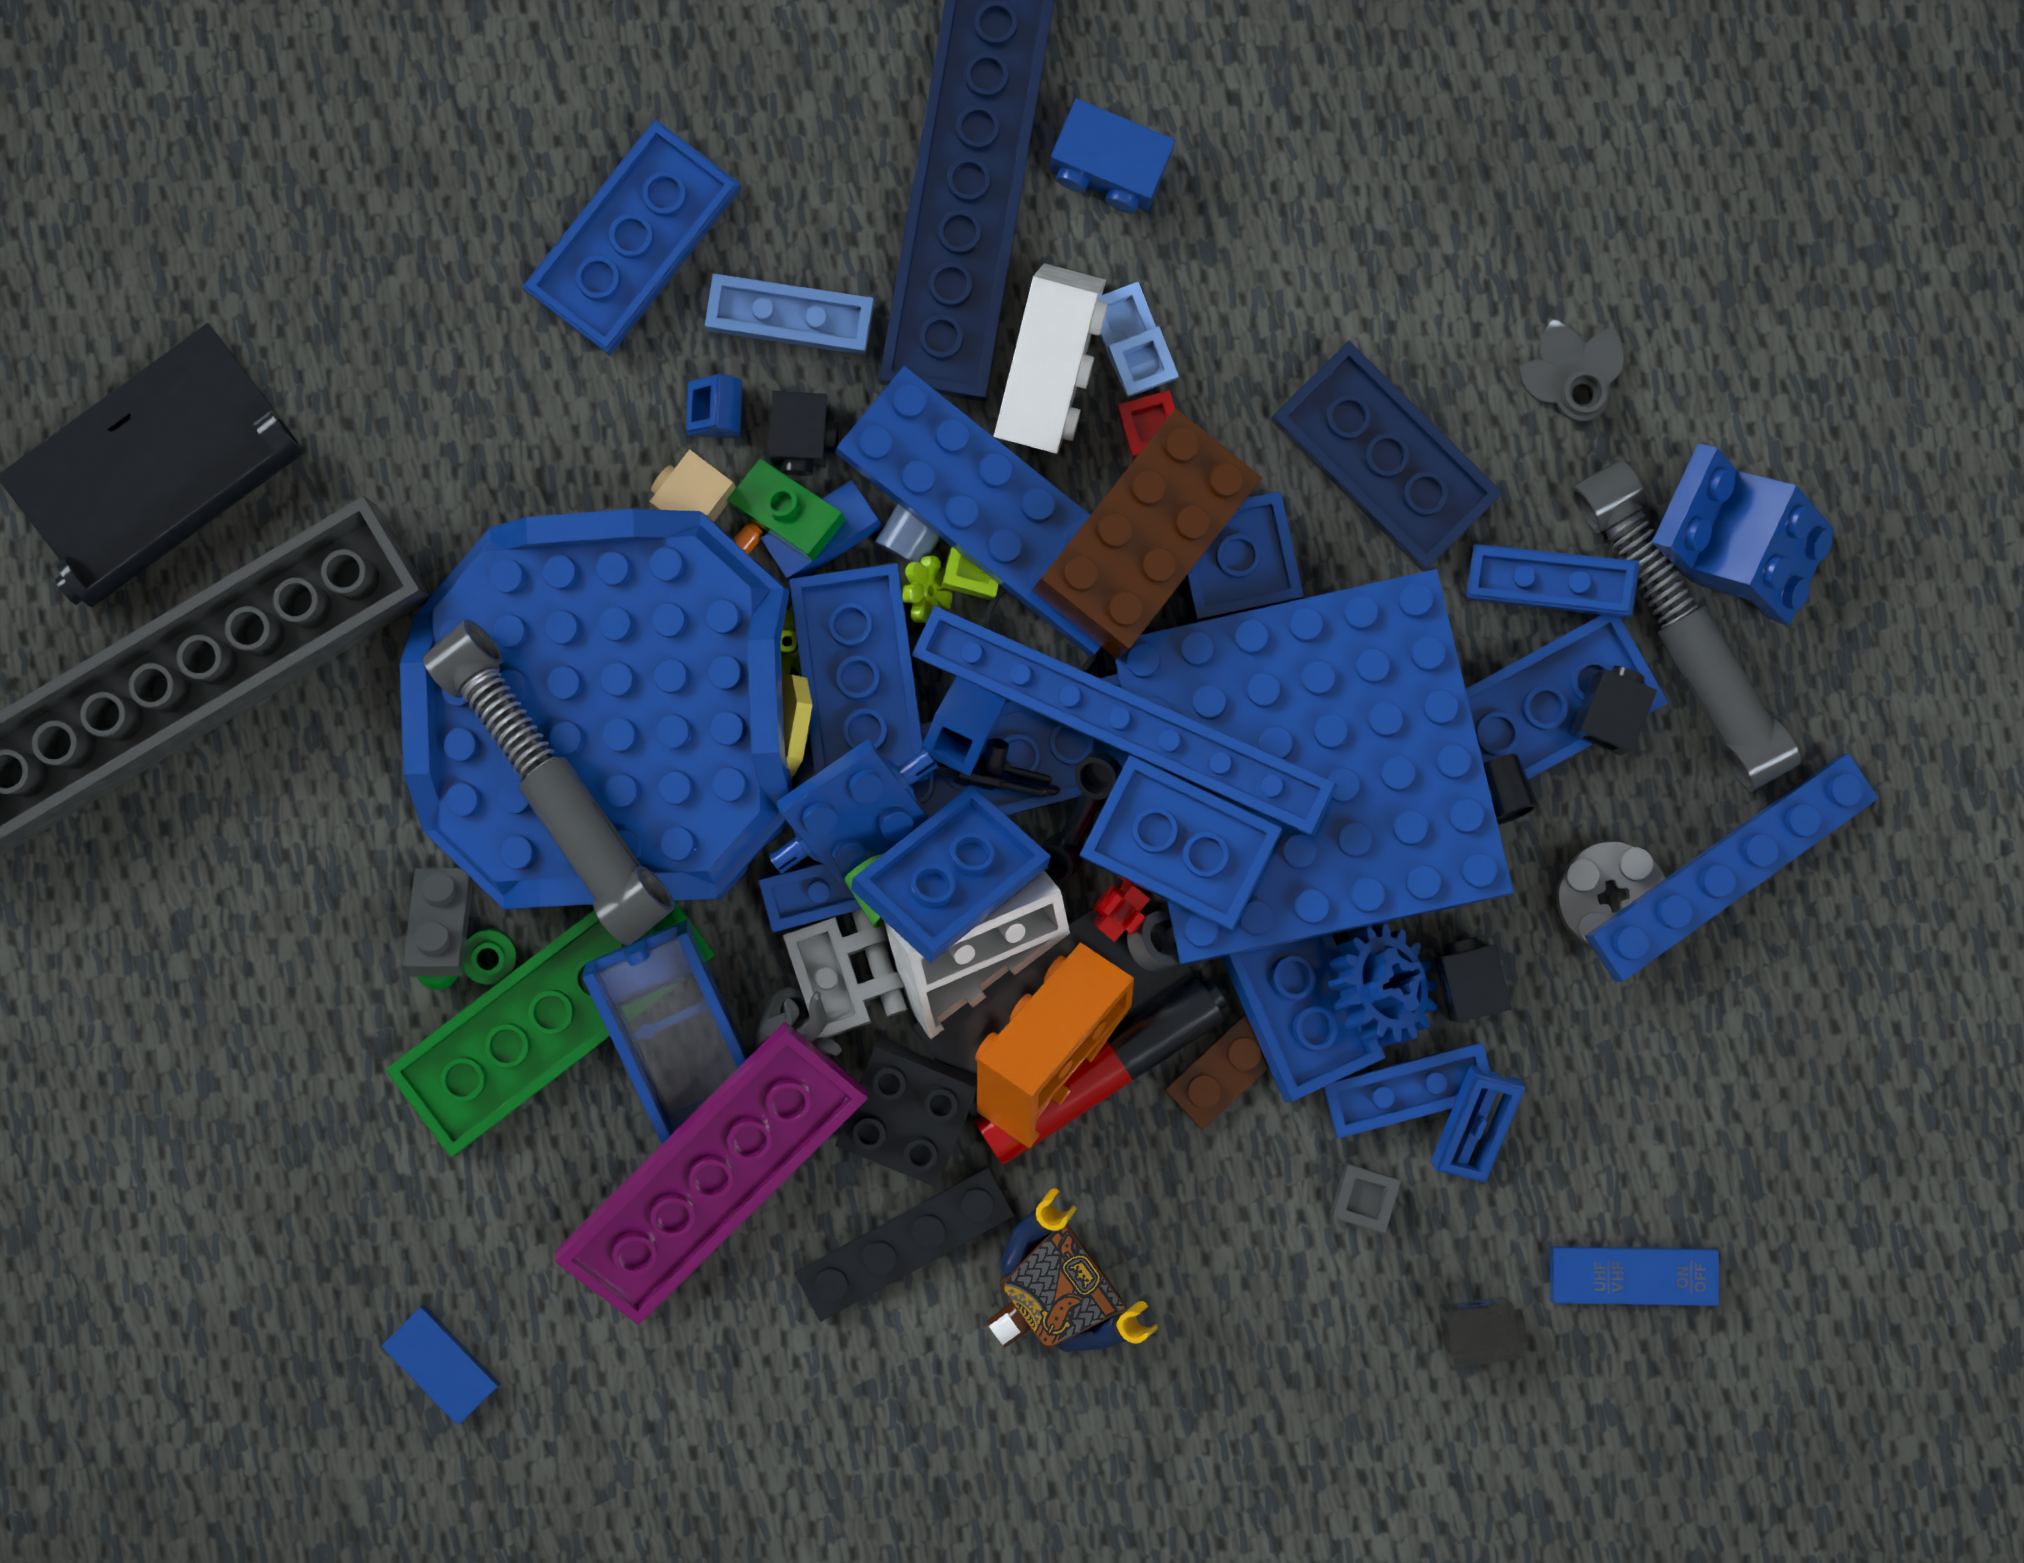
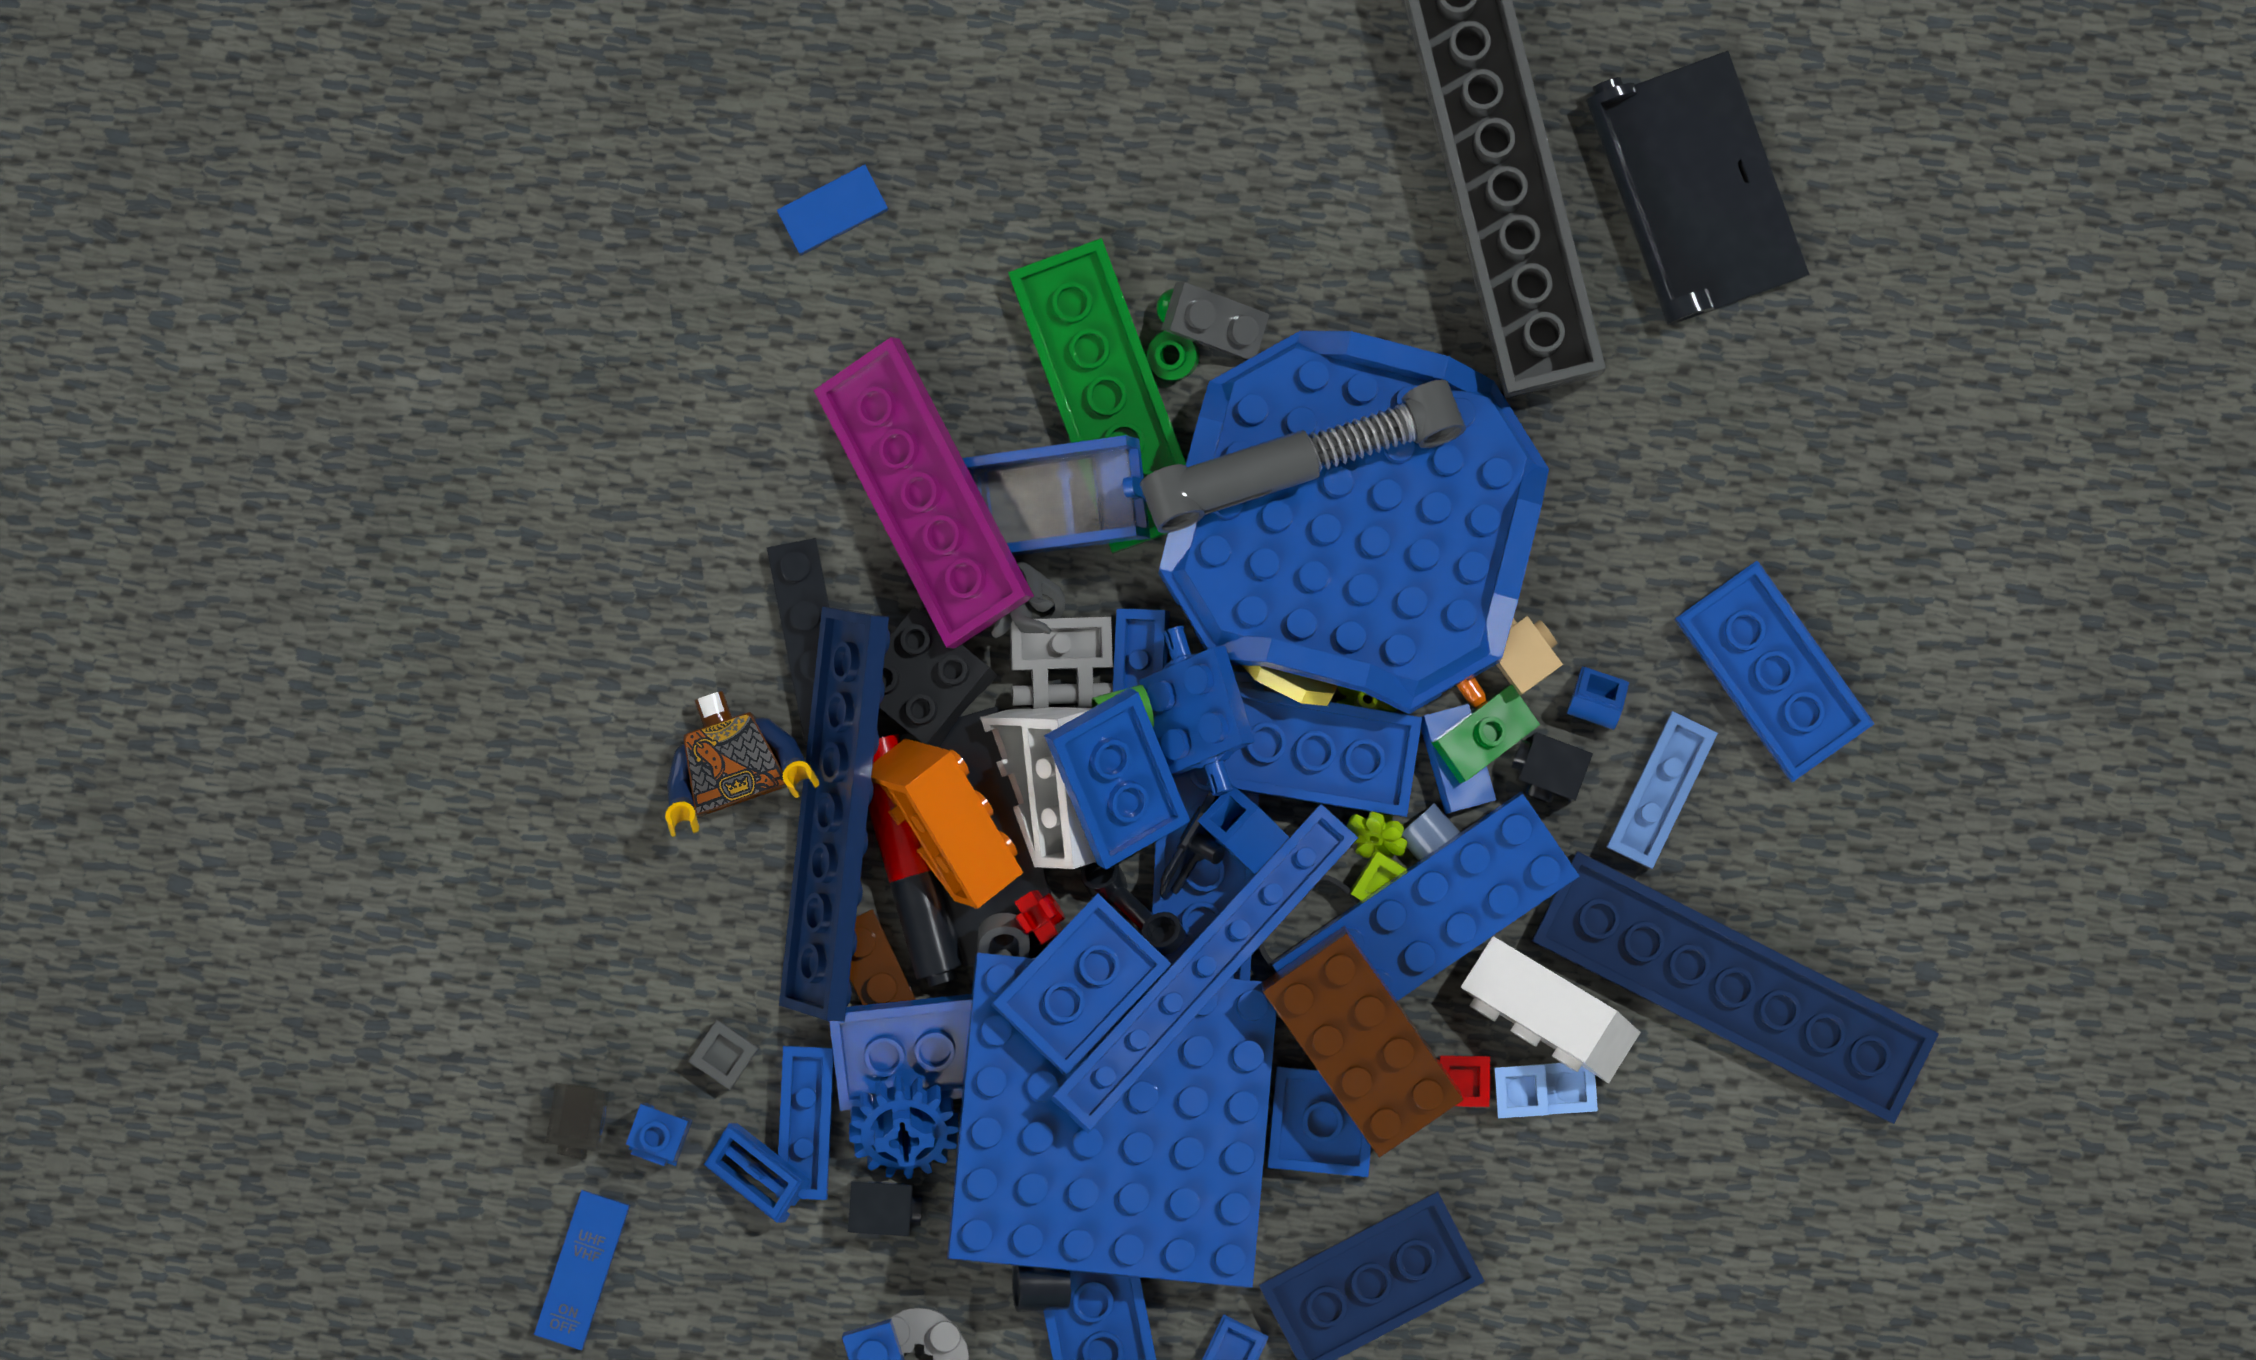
camera: 115 degrees right, 0 degrees up
(1079, 1161) = (835, 813): none -> dark blue plate
(1110, 157) = (1716, 1120): blue brick -> none
(1474, 1241) = (658, 1135): none -> blue window

